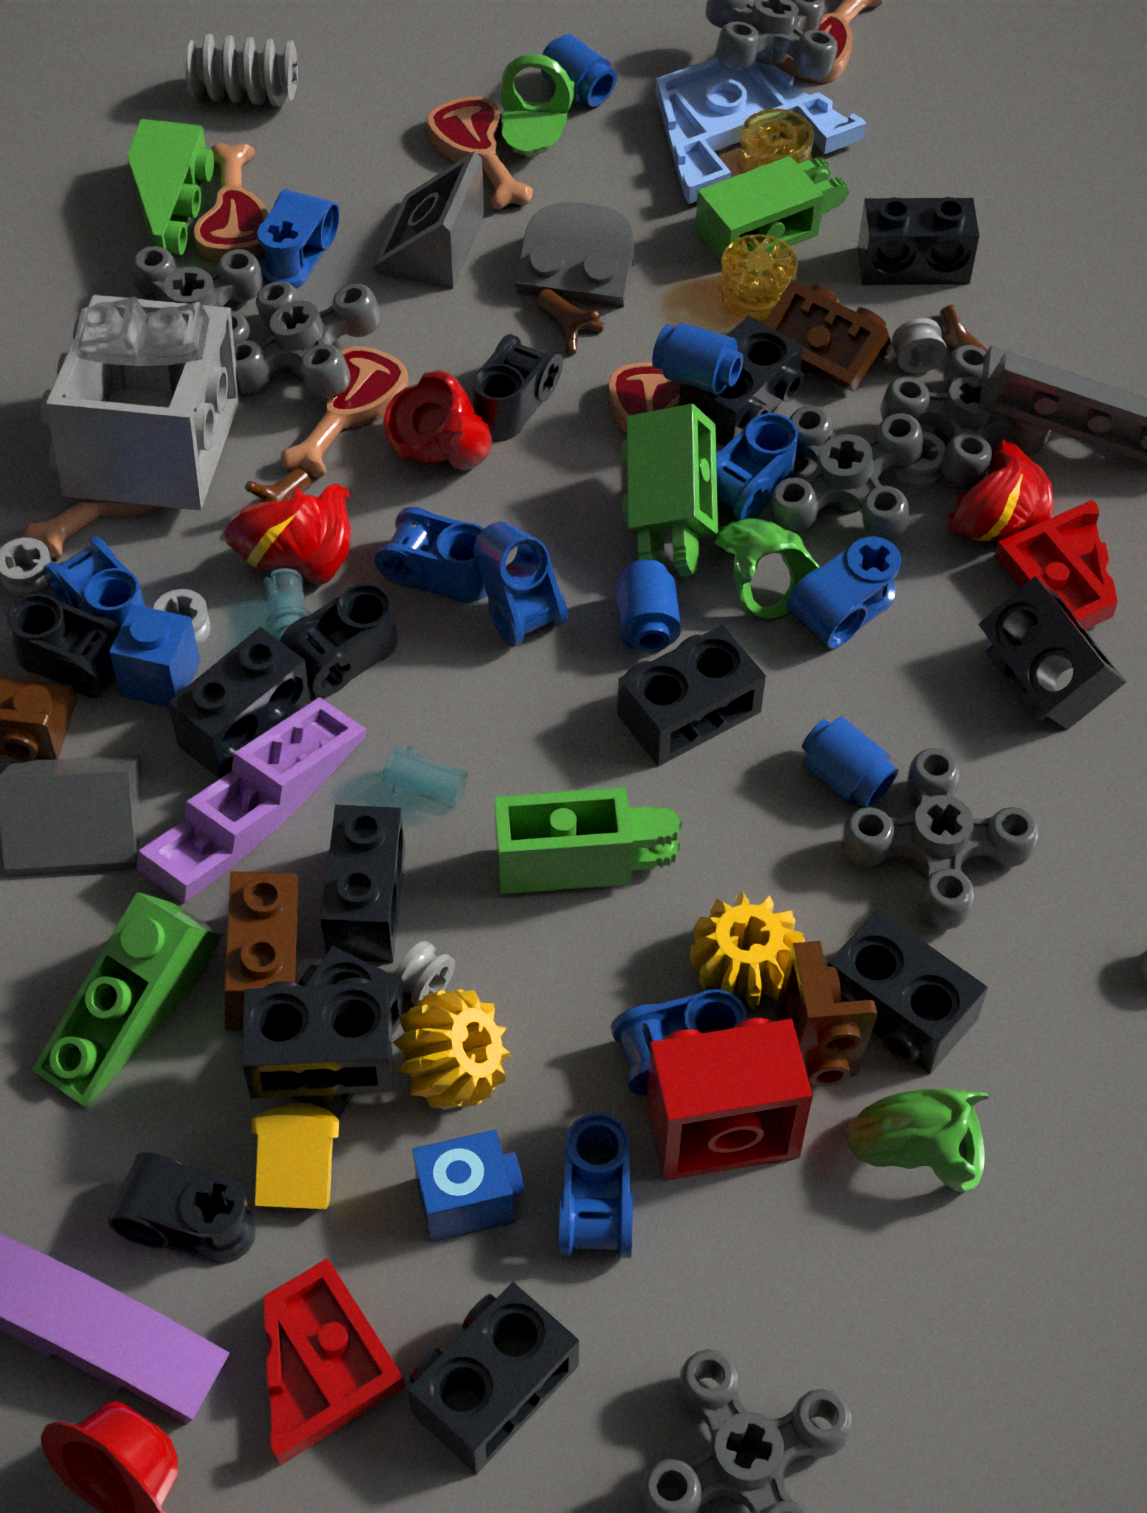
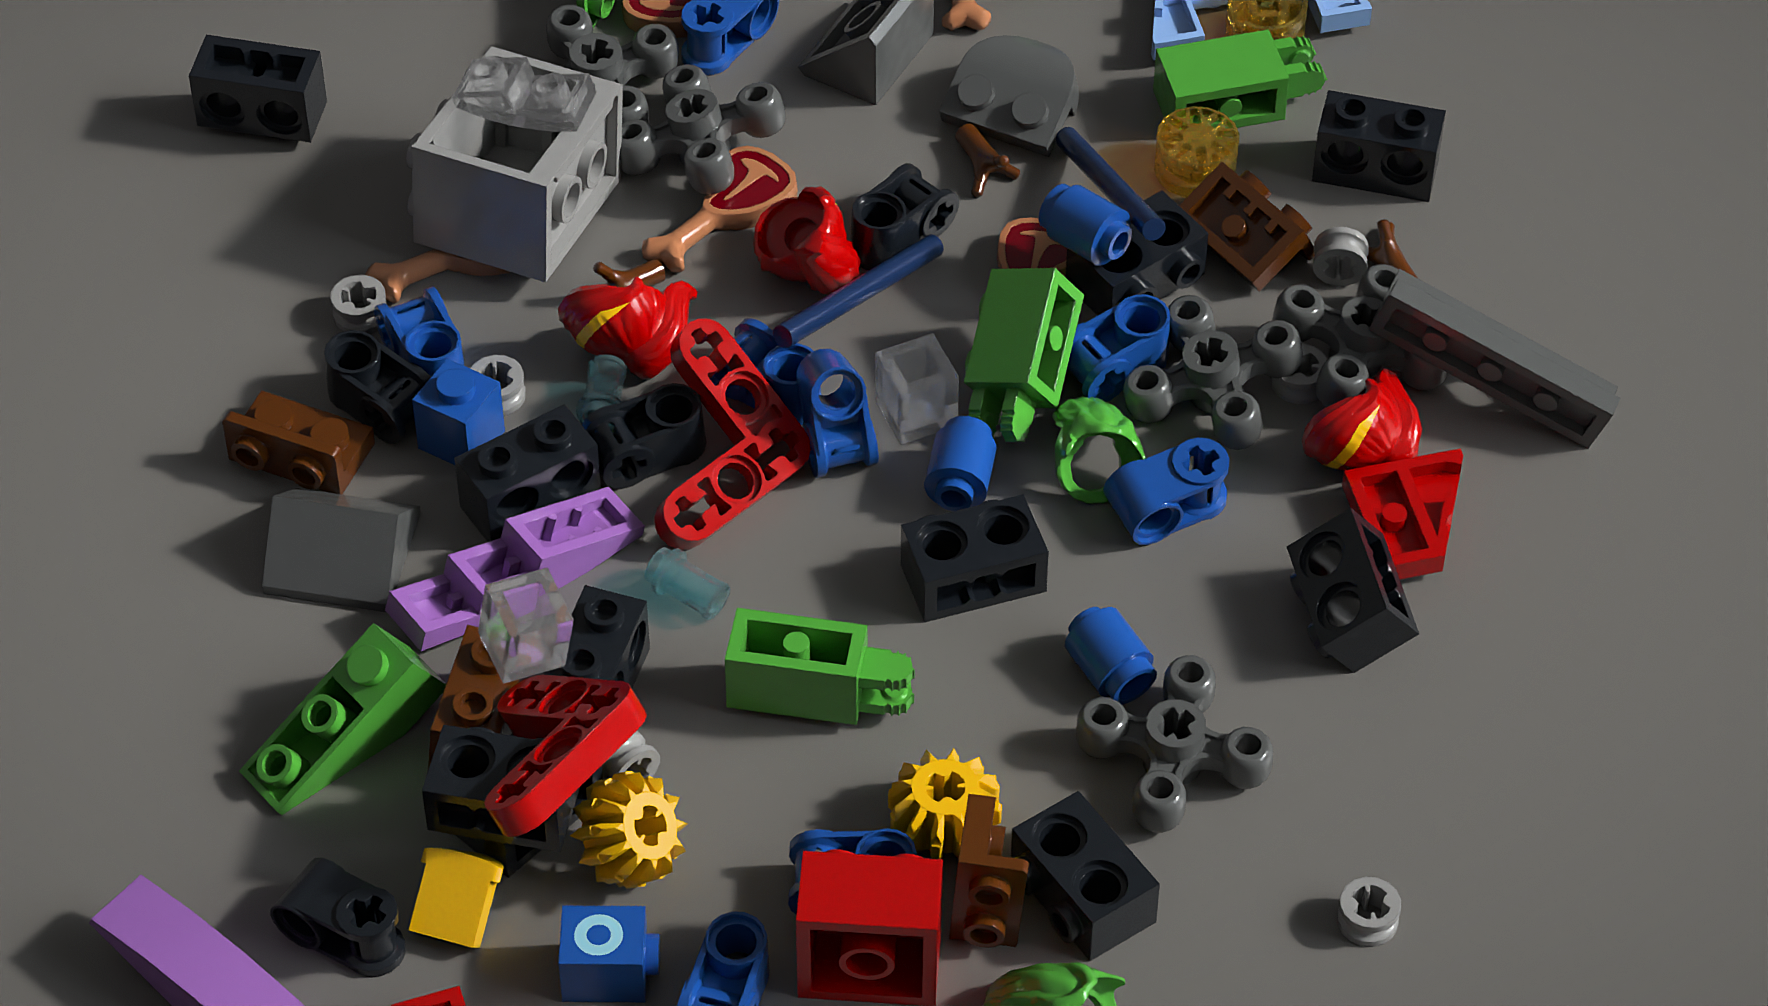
camera: 15 degrees right, 5 degrees down
(298, 864) = (525, 625): none -> clear brick
(333, 947) = (581, 730): none -> red beam
(442, 618) = (749, 433): none -> red beam
(499, 463) = (857, 291): none -> dark blue bar
(587, 542) = (916, 388): none -> clear brick
(696, 315) = (1110, 183): none -> dark blue bar

